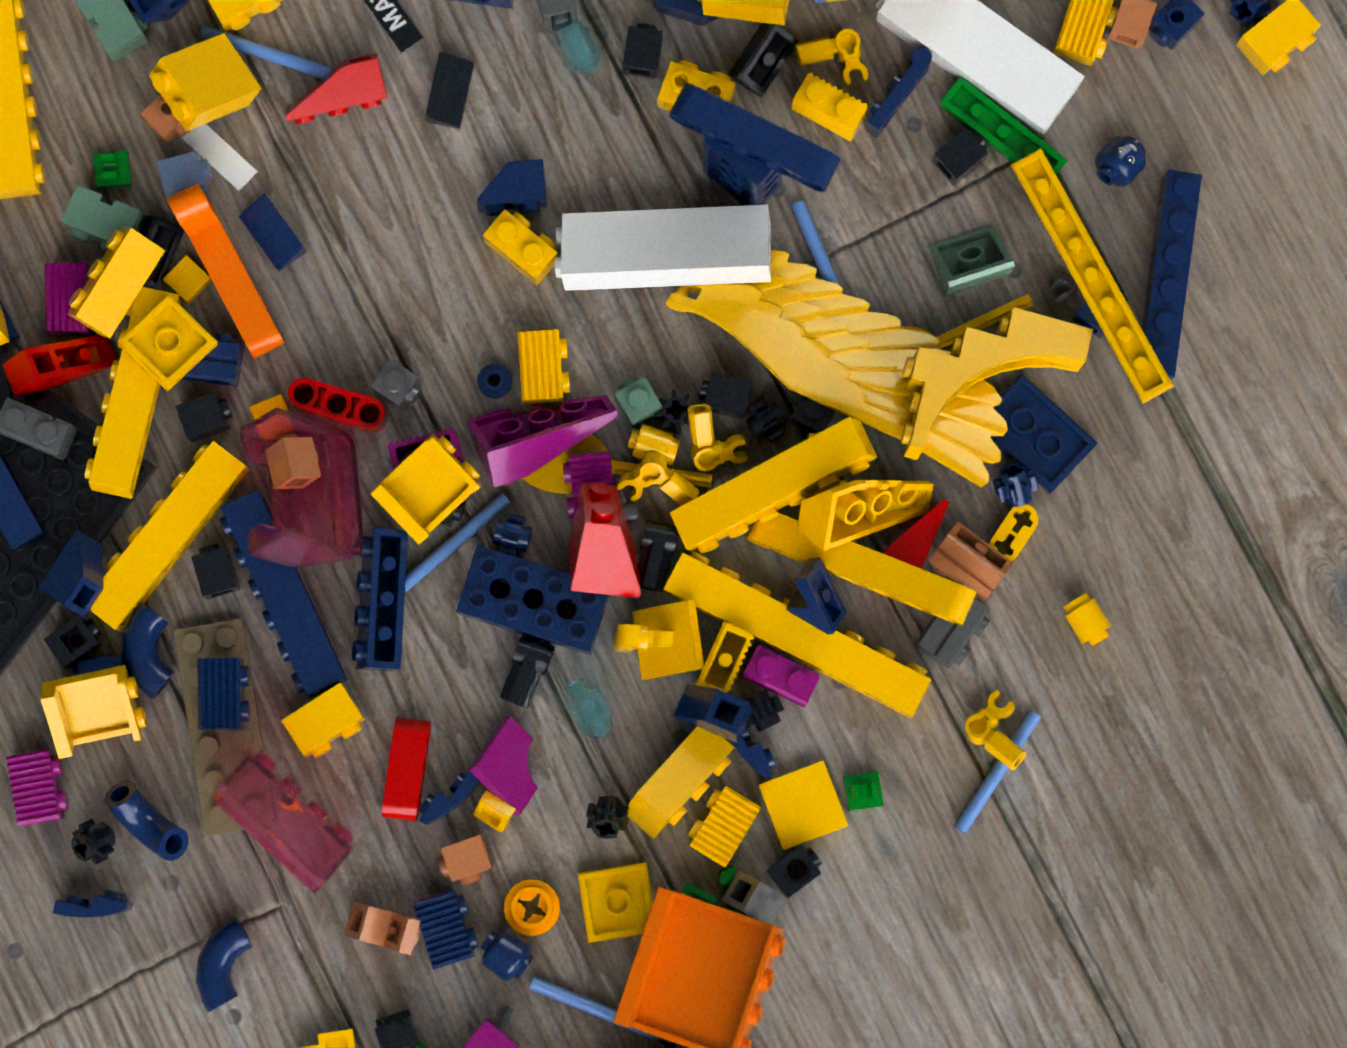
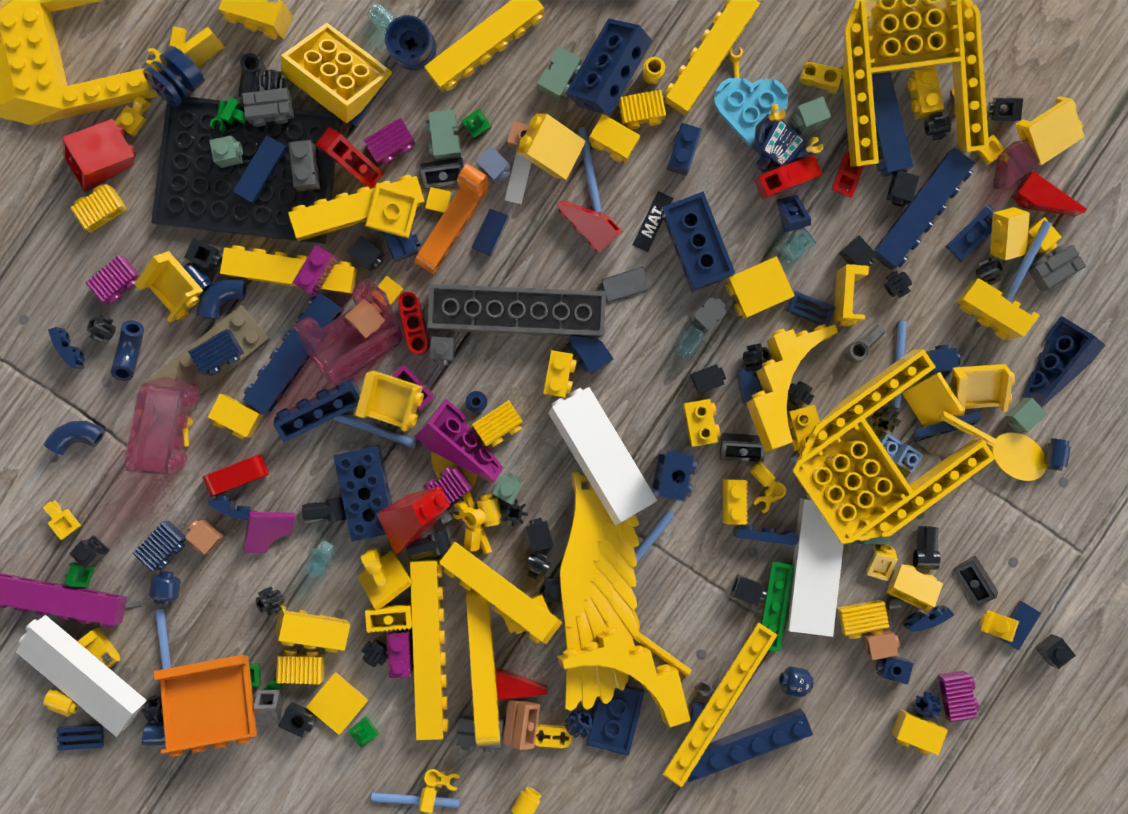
camera: 60 degrees right, 5 degrees up
(76, 574) = (236, 235): dark blue slope -> none
(115, 281) = (409, 161): yellow brick -> none
(188, 491) = (315, 270): none -> magenta brick
(215, 571) = (284, 309): black brick -> none
(383, 927) = (142, 513): nougat brick -> none
(401, 253) = (516, 310): none -> flat silver brick
(494, 811) = (238, 536): yellow tile -> none
(512, 534) = (395, 460): dark blue gear -> none
(516, 912) = (191, 593): light orange gear -> none
(615, 901) = (228, 630): yellow tile -> none
(705, 450) = (502, 542): yellow bar -> none
(714, 711) = (354, 629): dark blue slope -> none
(754, 137) = (683, 480): dark blue beam -> none
(758, 759) = (348, 661): dark blue slope -> none
(817, 597) = (451, 651): dark blue slope -> none
(861, 509) = (508, 645): yellow wedge -> none
(971, 260) = (693, 628): sand green slope -> none

